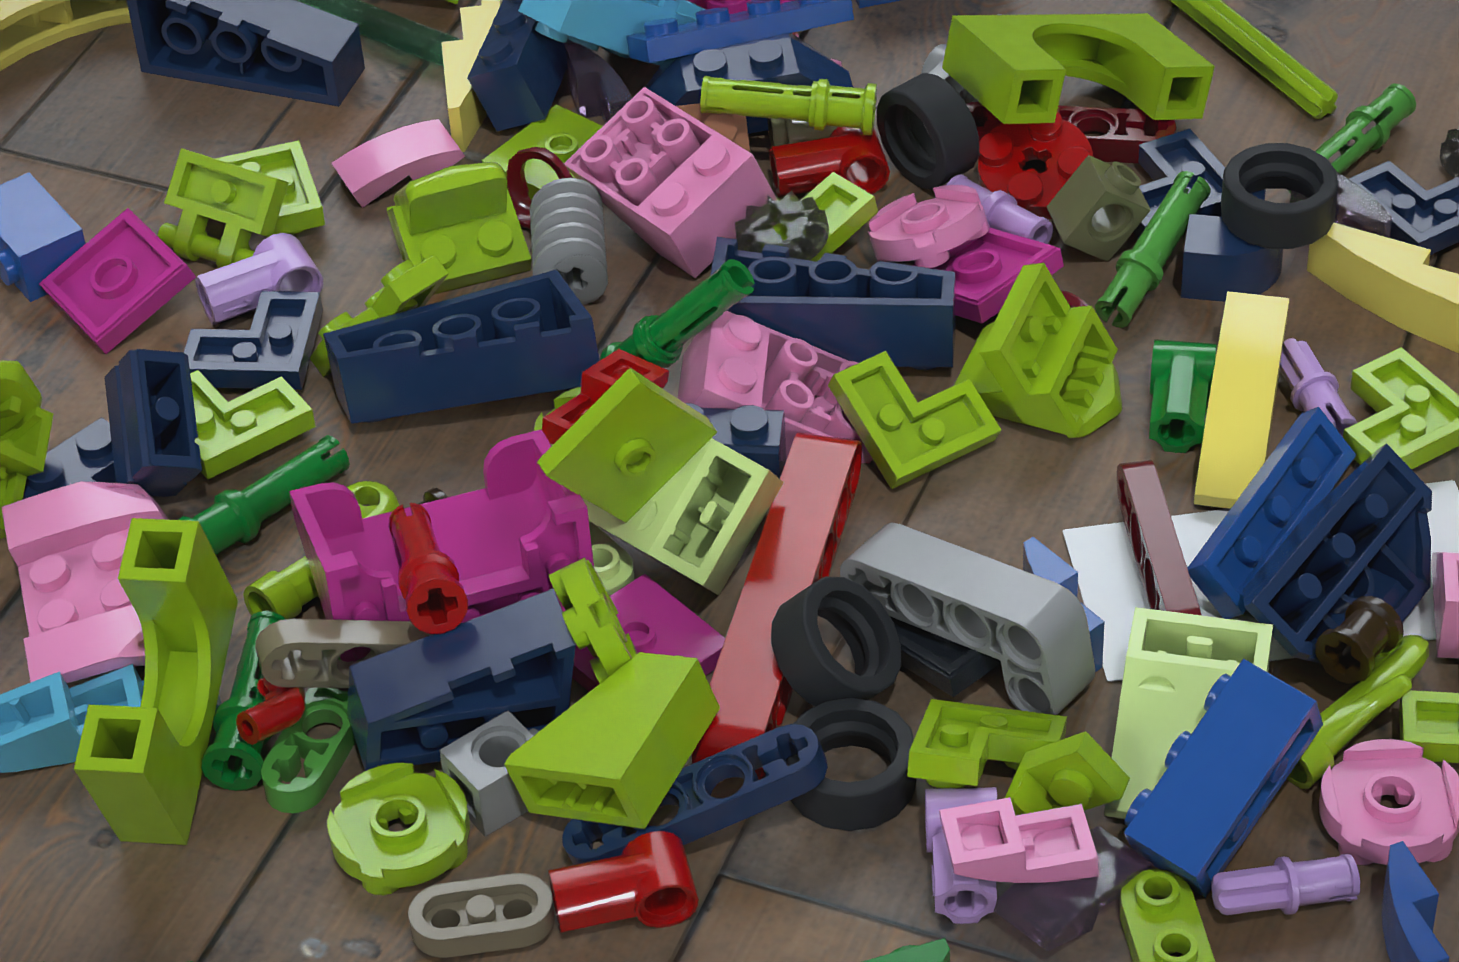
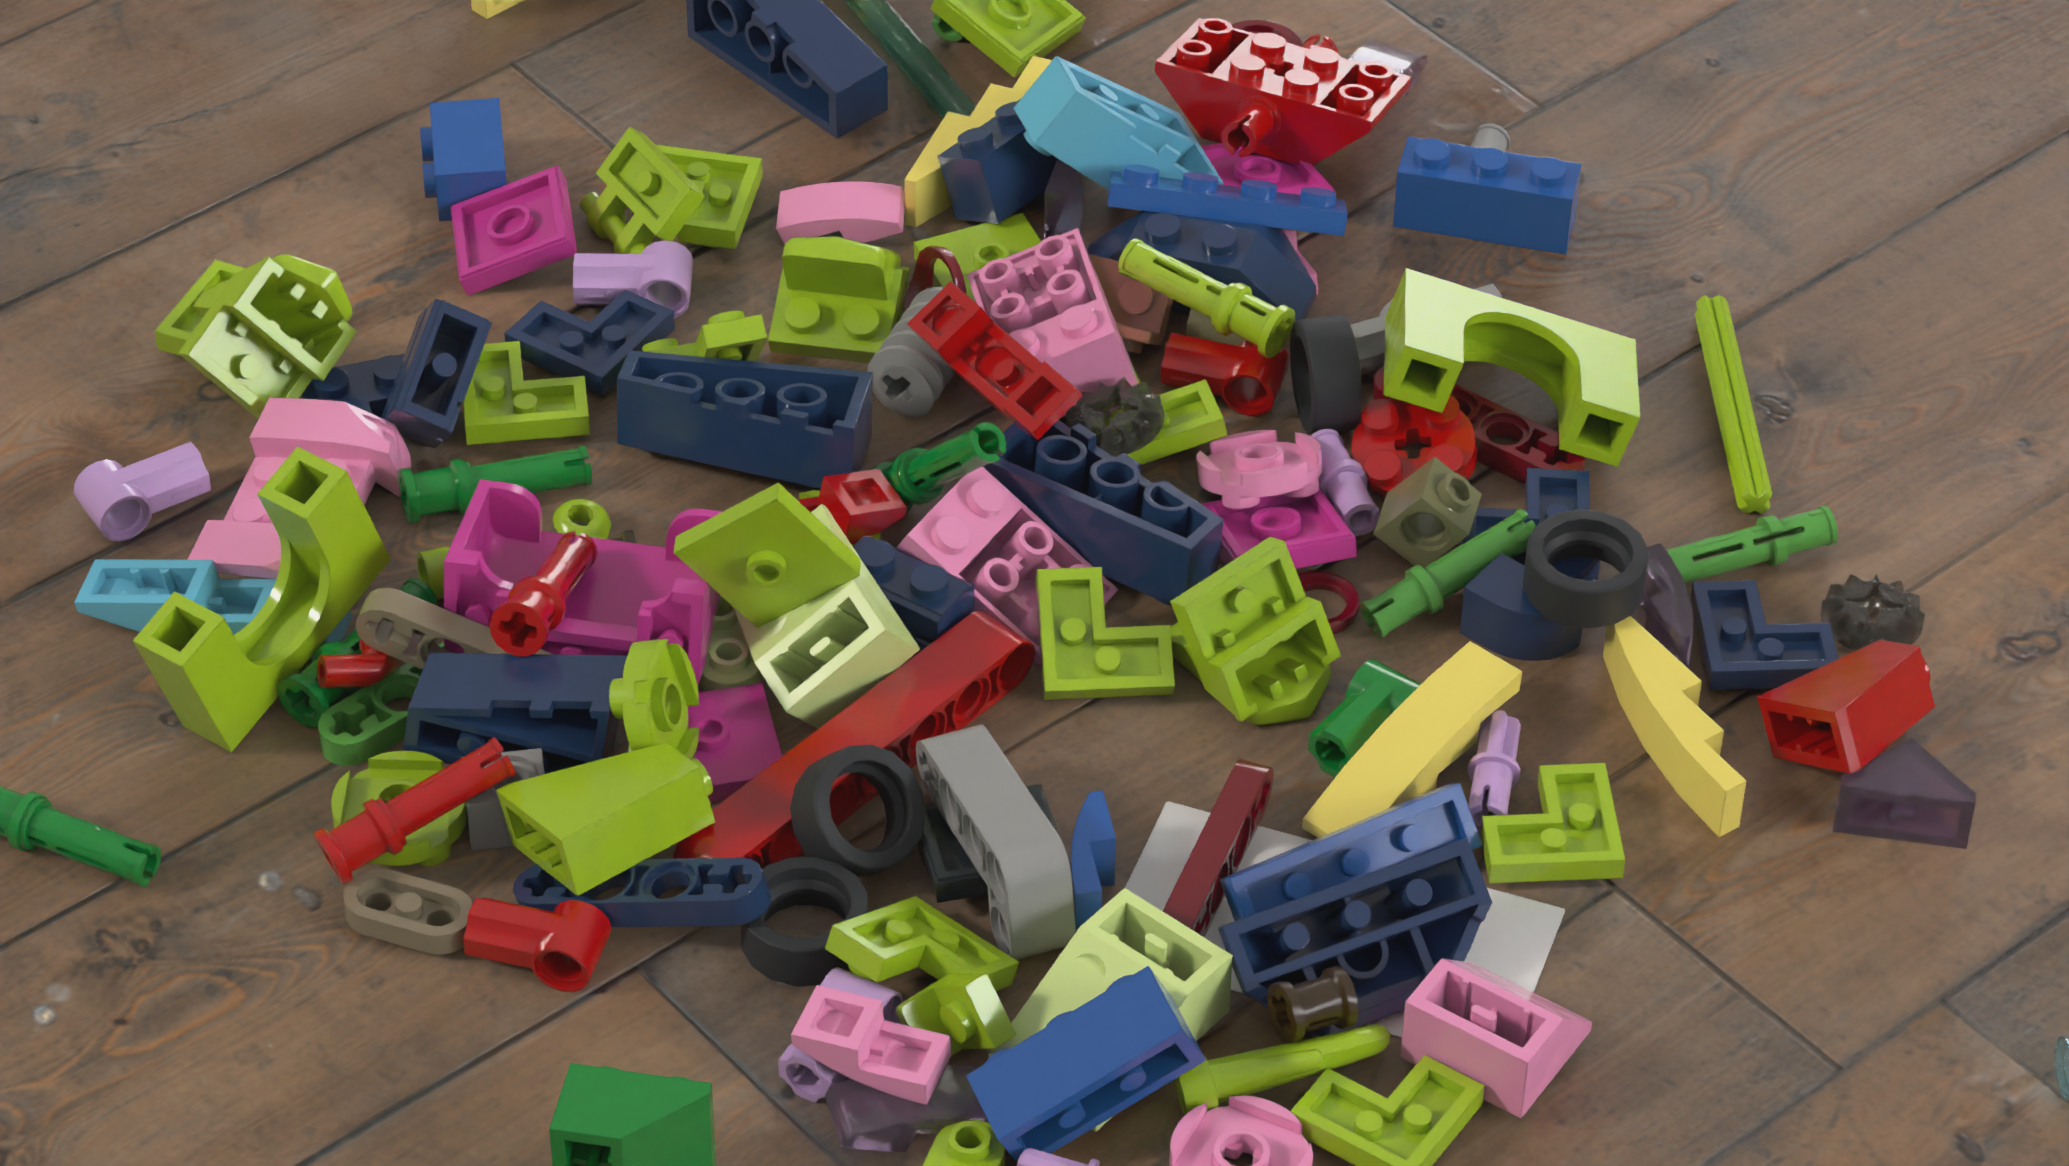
camera: 25 degrees right, 0 degrees up
(418, 841) = (386, 824): none -> red pin
(669, 221) = (994, 362): none -> red slope

